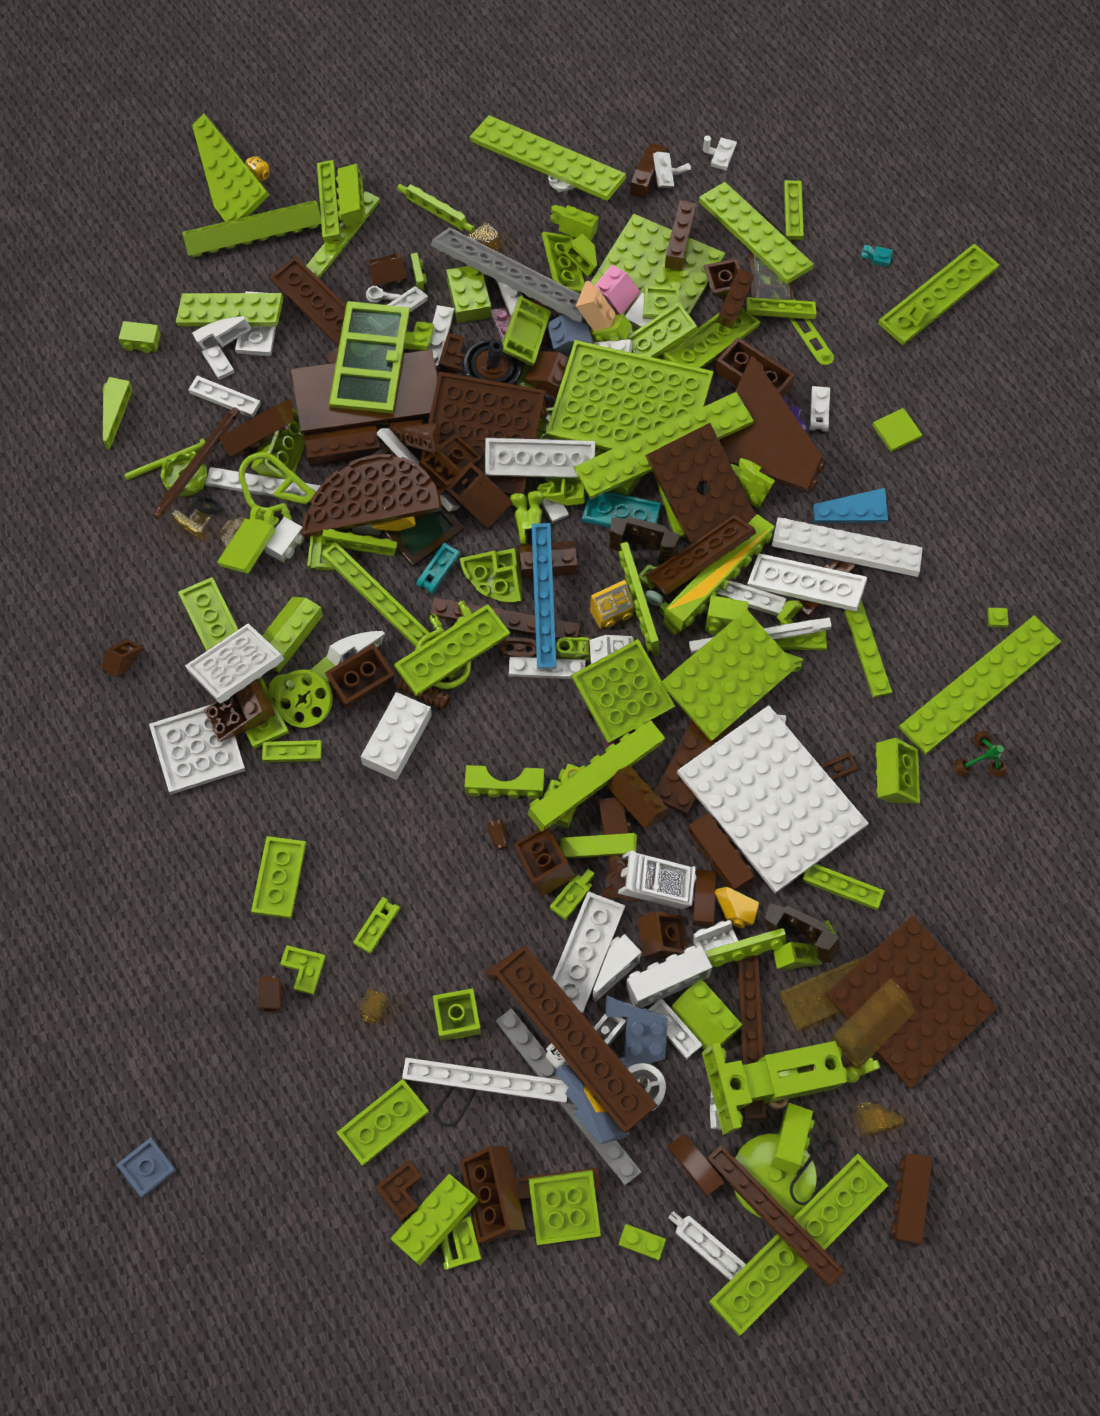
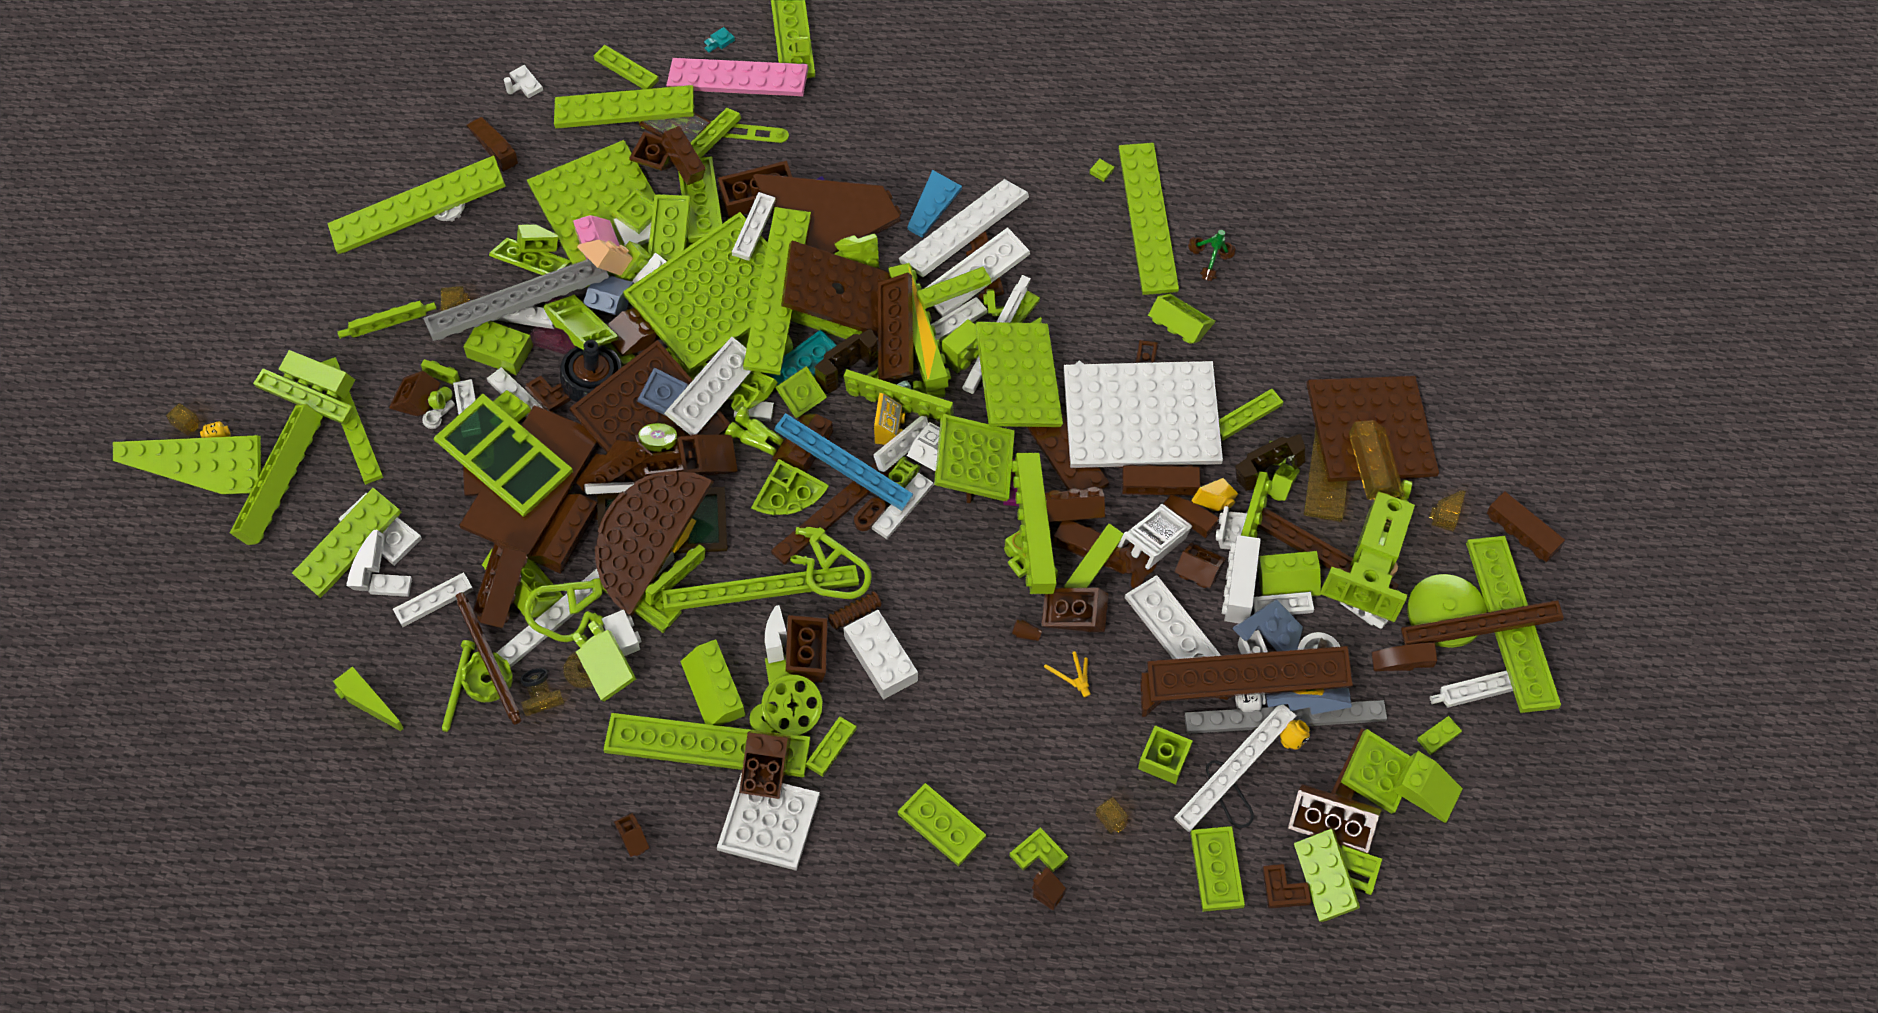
camera: 55 degrees left, 5 degrees down
(139, 336) = (308, 634): lime brick -> none
(234, 663) = (721, 736): white plate -> none
(255, 142) = (183, 419): none -> clear yellow brick
(311, 297) = (400, 467): reddish brown plate -> none
(376, 925) = (1041, 773): lime plate -> none
(390, 285) = (438, 399): none -> lime plate
(438, 568) = (745, 530): teal plate -> none
(452, 649) = (839, 560): lime plate -> none
(462, 448) = (657, 436): none -> lime tile
(480, 905) = (1080, 682): none -> yellow plant
(505, 423) = (661, 391): none -> sand blue tile
(528, 784) = (968, 615): lime arch -> none
(551, 1113) = (1295, 734): none -> yellow head
(572, 895) = (1120, 608): lime hinge -> none
(574, 221) = (498, 225): lime hinge -> none
(579, 1261) = (1428, 786): none -> lime slope
(590, 525) = (801, 392): none -> lime plate
(592, 627) = (899, 445): none -> white plate
(619, 961) = (1204, 611): white slope -> none
(664, 171) = (509, 130): white plate -> none
(680, 235) = (584, 157): reddish brown brick -> none
(705, 388) = (753, 226): none -> white plate
(774, 573) = (953, 287): none -> lime plate
(792, 1139) = (1429, 575): lime brick -> none
(806, 1165) = (1456, 583): black piece -> none
(819, 408) = (823, 167): white plate -> none
(852, 291) = (739, 76): none -> bright pink plate
(868, 652) = (1065, 273): lime plate -> none
(897, 430) = (887, 129): lime tile -> none

